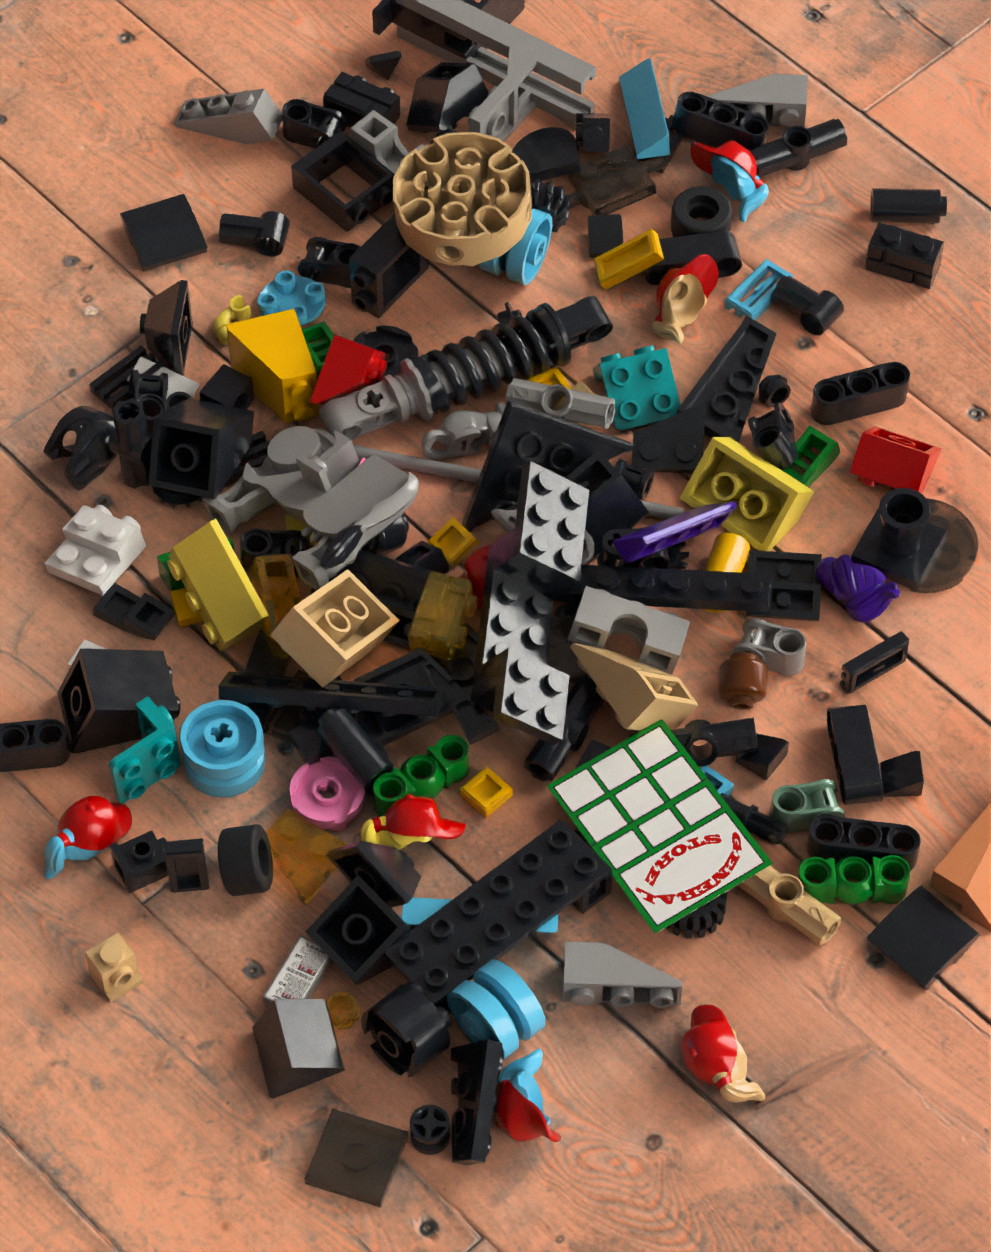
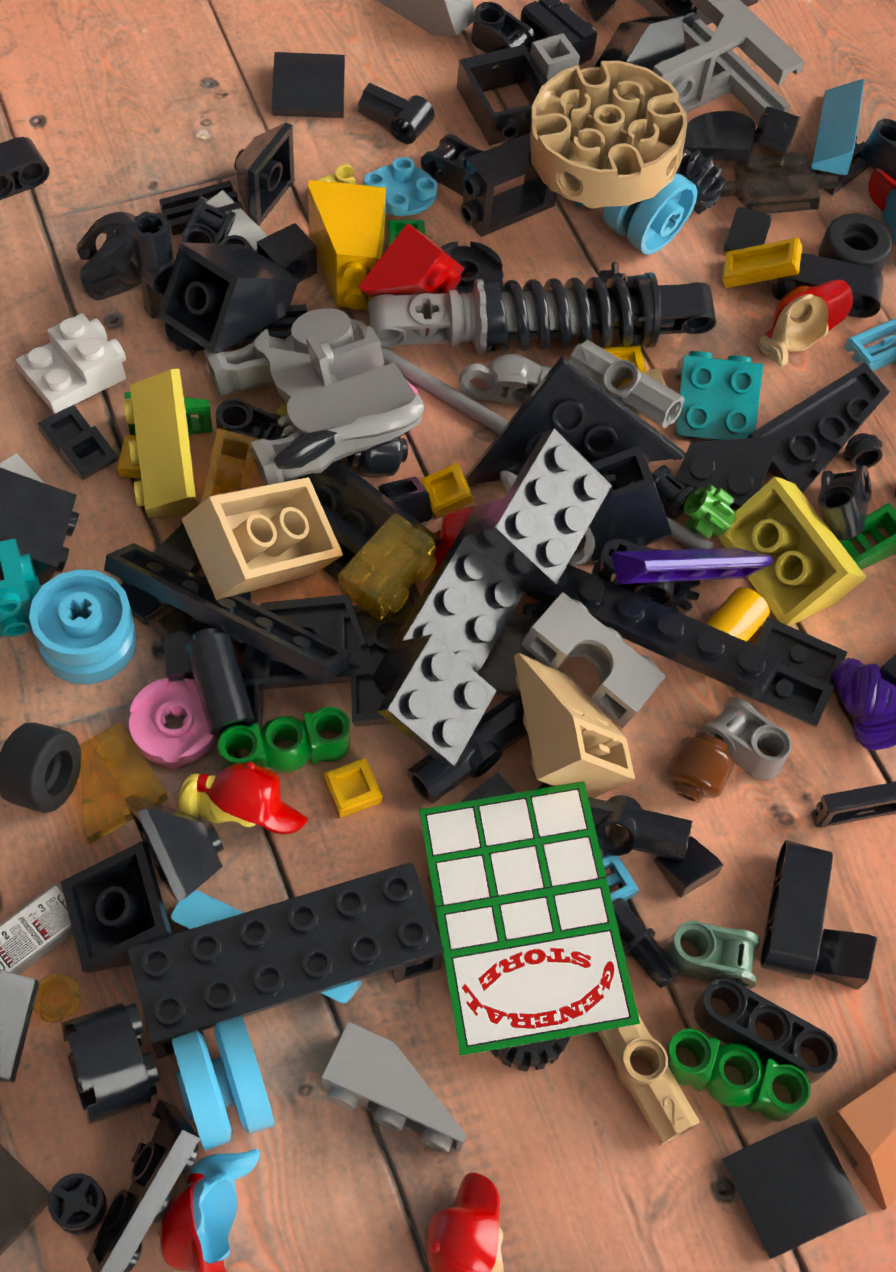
camera: 15 degrees right, 5 degrees up
(670, 484) = (709, 511): none -> bright green gear

